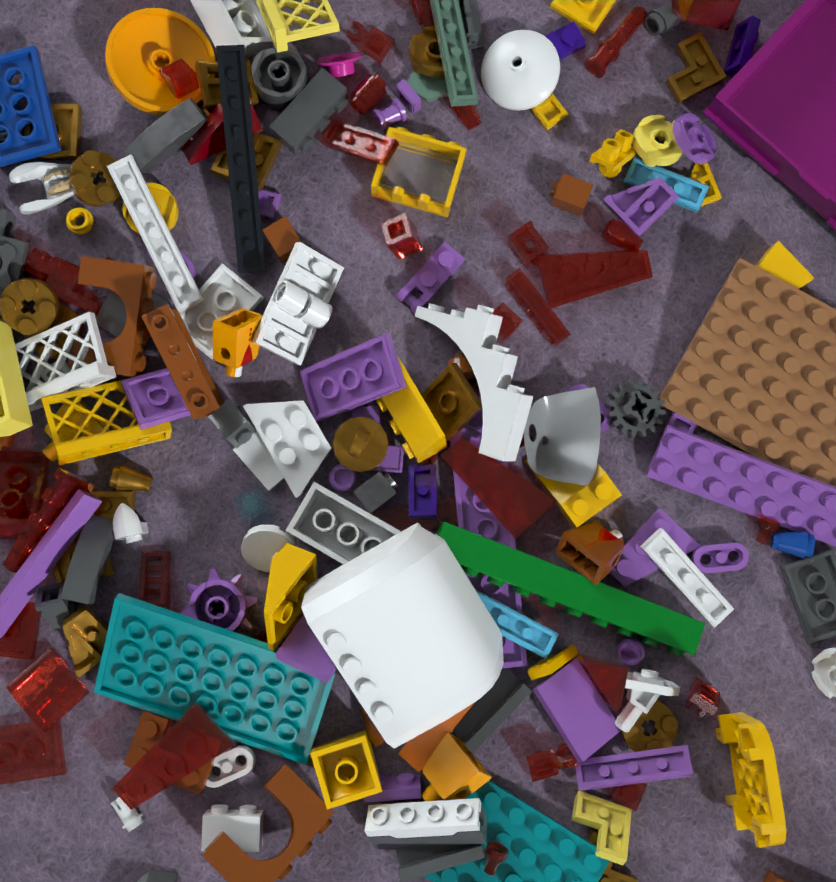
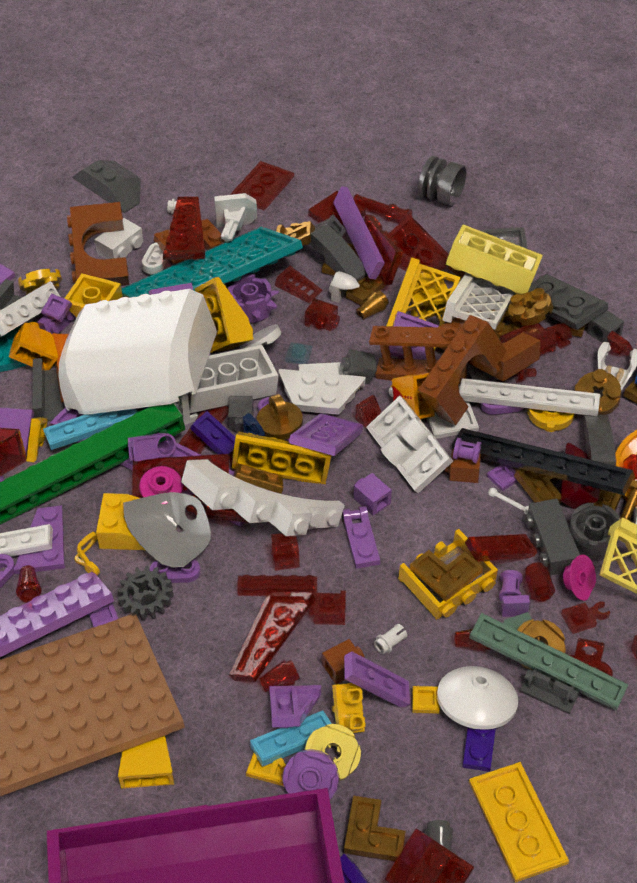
camera: 135 degrees right, 35 degrees down
(12, 198) = (619, 344): none -> clear red plate
(47, 690) = (283, 208): clear red slope -> none
(76, 213) = (574, 367): yellow plate -> none
(106, 728) = (233, 212): none -> white piece
(185, 516) = (322, 315): none -> clear red brick
(191, 289) = (441, 386): none -> dark orange arch
(278, 233) = (467, 450): none -> medium lavender bush
(281, 375) = (367, 411): none -> clear red slope
(288, 159) = (493, 492): none -> white hinge
(363, 853) = (39, 278): none -> yellow plate
(379, 298) = (372, 494): none -> medium lavender brick
(392, 457) = (252, 426): none -> dark blue tile
(395, 788) = (56, 308): none -> medium lavender tile
(401, 236) = (405, 529): clear red brick -> none
(435, 155) = (443, 578): none -> pearl gold plate
(495, 526) = (146, 446): none -> medium lavender piece
(517, 176) = (385, 642): none -> white pin
(517, 492) = (148, 483): none -> dark pink piece
(579, 144) = (376, 679): none -> medium lavender plate
(591, 550) = (78, 496): dark orange torso -> none
(609, 49) = (443, 776): clear red pin -> none
(645, 481) = (84, 561): none -> yellow piece
(703, 519) = (28, 584): none -> clear red cone

